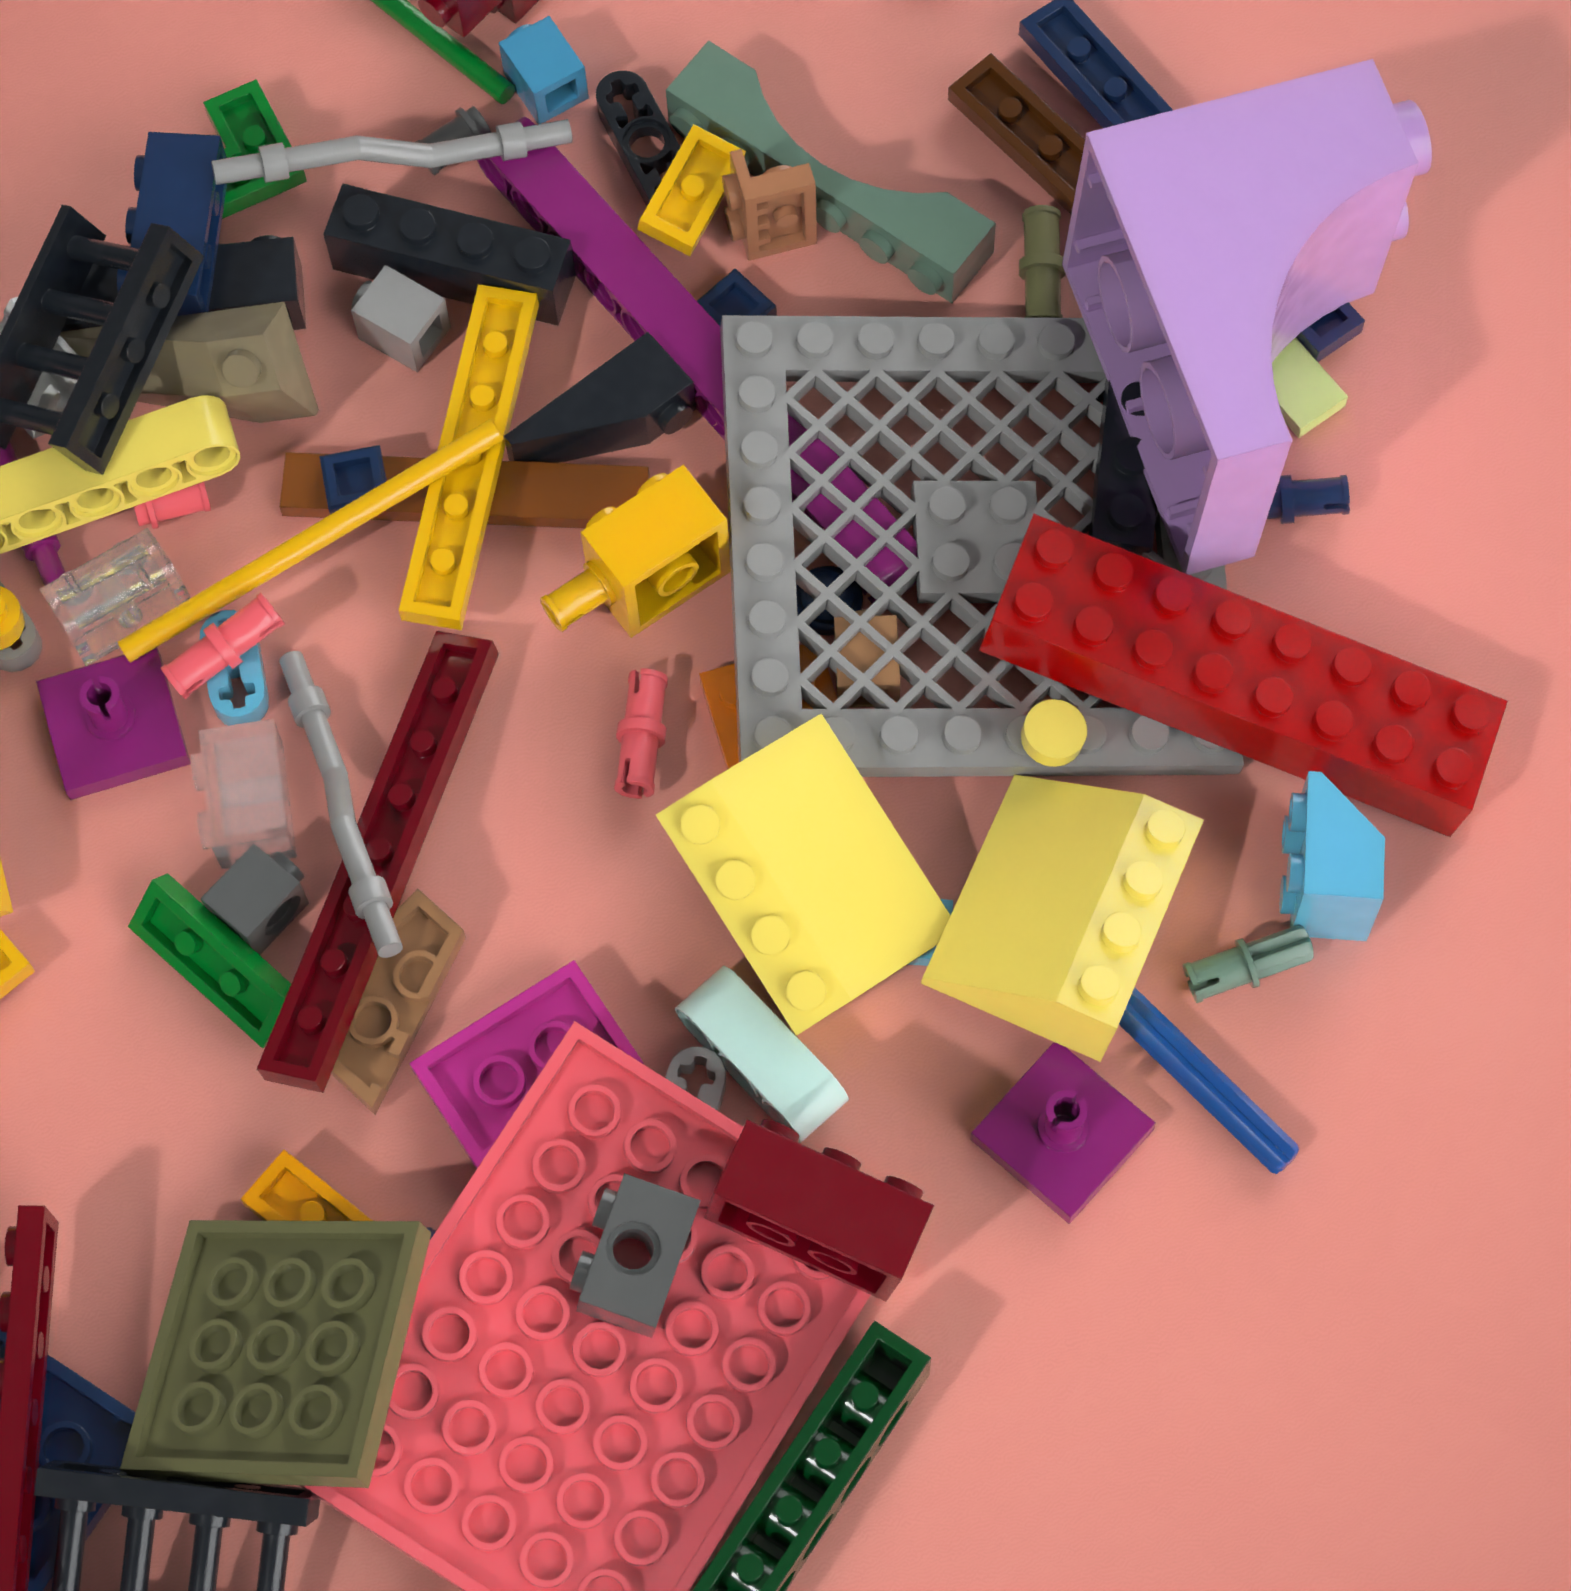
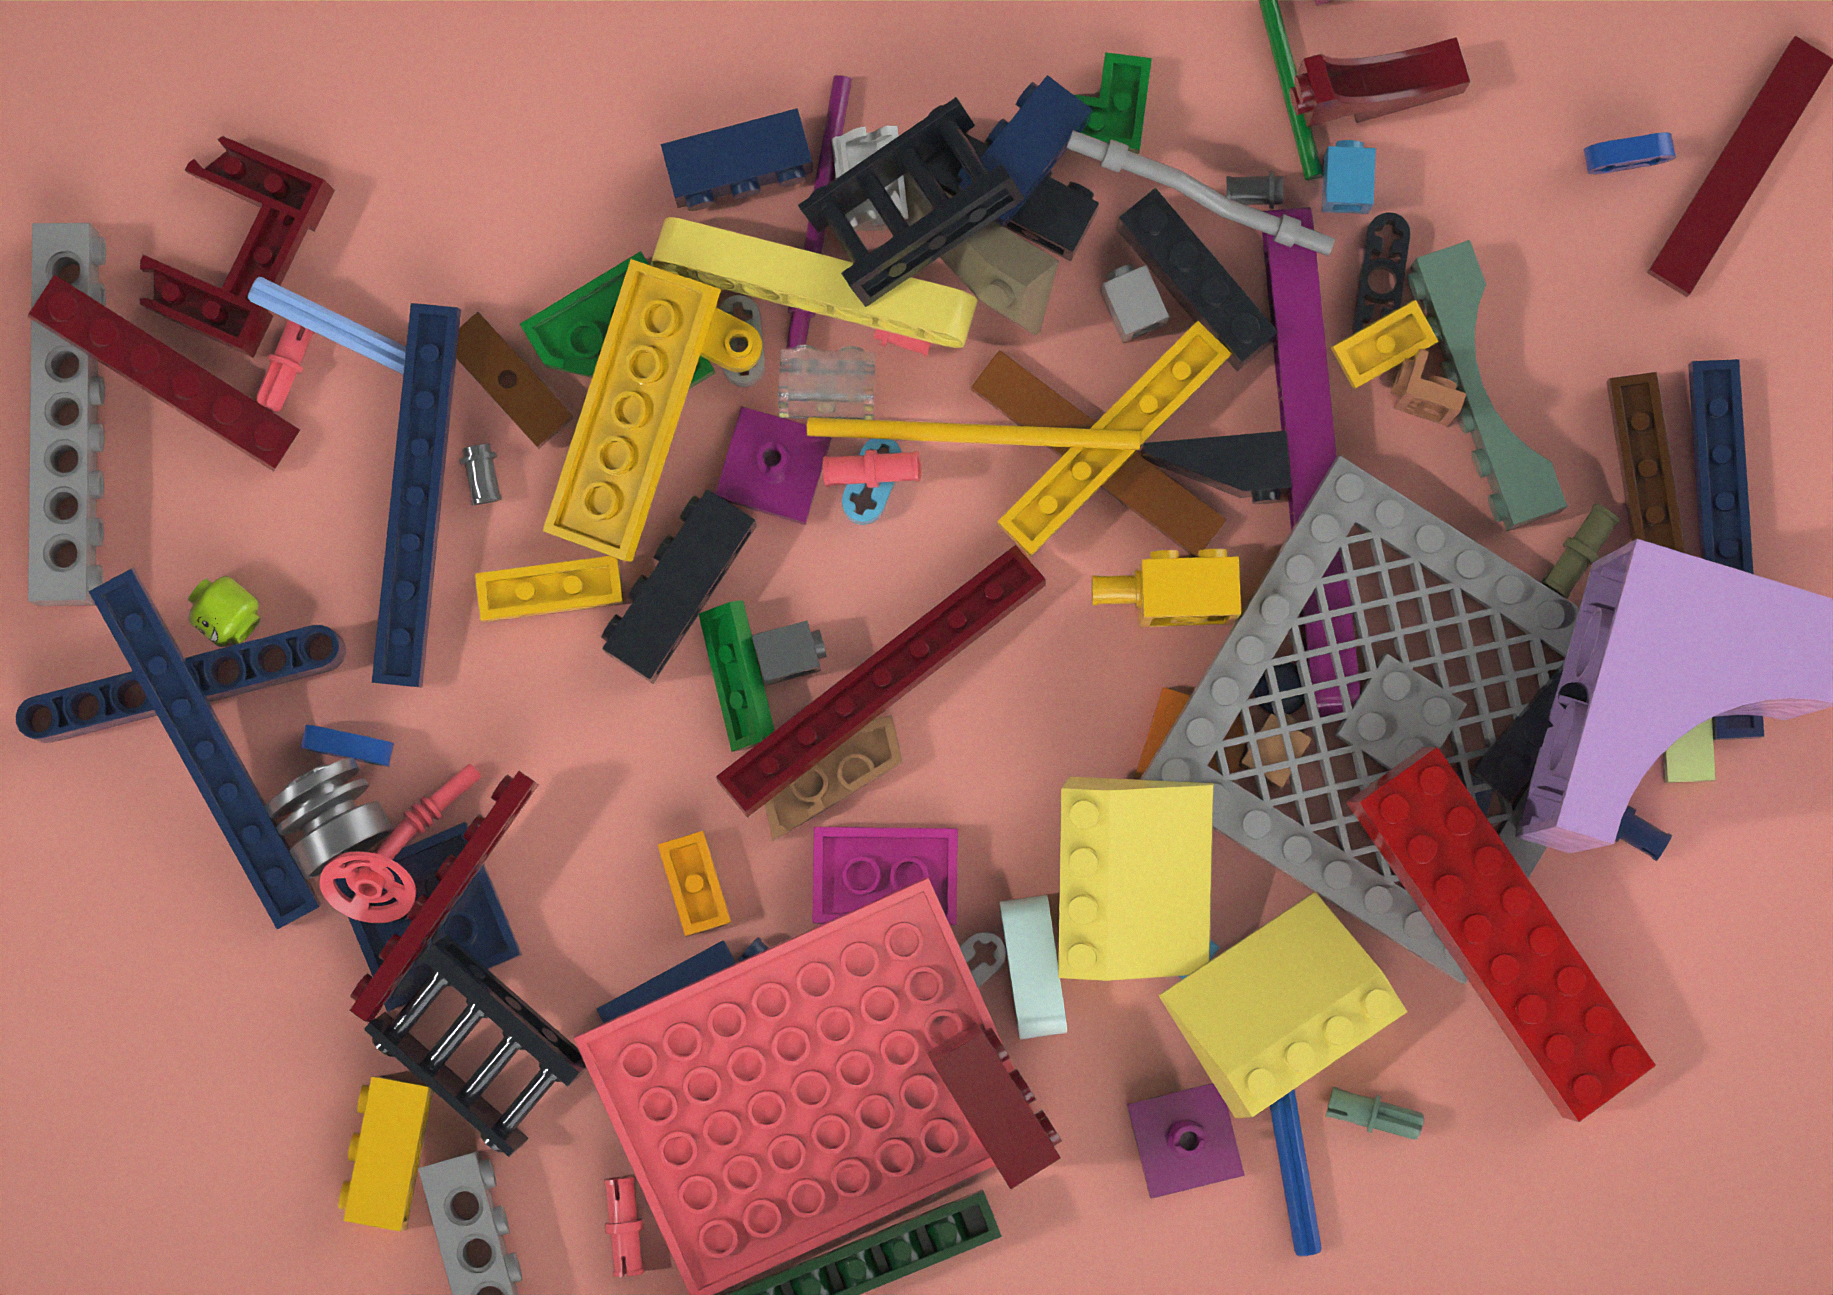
camera: 30 degrees right, 15 degrees up
(84, 909) = (678, 586): none -> black brick
(244, 791) = (824, 575): clear brick -> none
(278, 1352) = (618, 965): olive plate -> none
(351, 475) = (1029, 403): dark blue tile -> none
(368, 892) = (855, 710): light grey bar -> none
(626, 1295) = (854, 1080): dark grey brick -> none
(641, 733) = (1099, 702): coral pin -> none
(736, 297) = (1360, 440): dark blue tile -> none
(1053, 732) = (1354, 889): light yellow tile -> none
(1332, 864) = (1468, 1095): medium azure slope -> none

